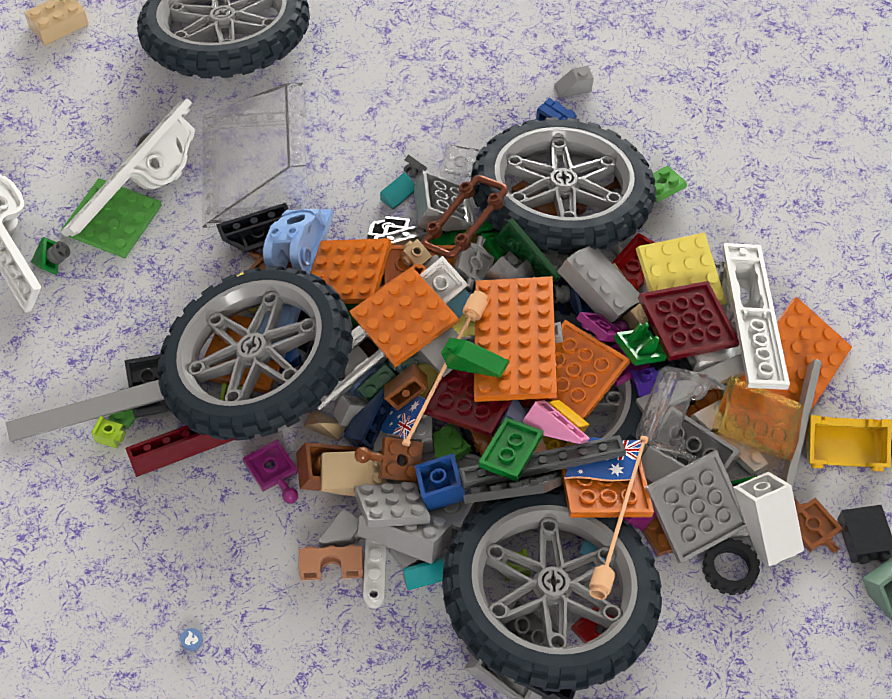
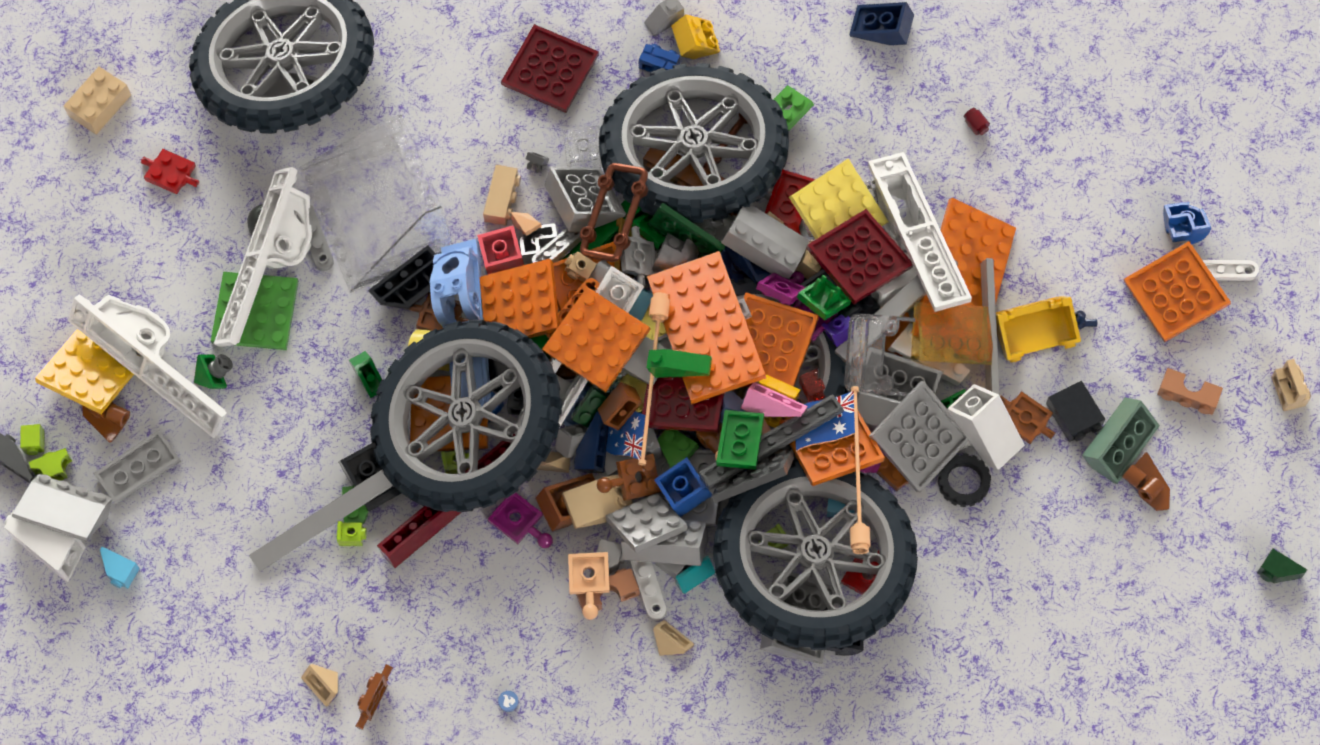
camera: 15 degrees left, 10 degrees up
(19, 562) = (322, 682): none -> tan slope
(59, 589) = (369, 702): none -> dark orange plate
(91, 88) = (169, 171): none -> red plate
(185, 292) = (366, 372): none -> green slope
(192, 175) = (319, 246): none -> light grey plate
(322, 549) = (581, 585): none -> light nougat plate
(350, 223) = (500, 250): none -> coral brick
(370, 184) = (501, 195): none -> tan brick
(376, 630) = (670, 640): none -> tan slope
(382, 210) = (525, 222): none -> light nougat slope
(397, 191) = (530, 194): teal slope -> none
(456, 97) = (550, 68): none -> dark red plate
(561, 294) = (731, 261): dark grey wheel -> none
(596, 105) = (695, 37): none -> yellow slope
(602, 424) = (812, 386): none -> clear red brick
(775, 140) = (883, 23): none -> dark blue slope
(839, 244) = (976, 121): none -> dark red brick

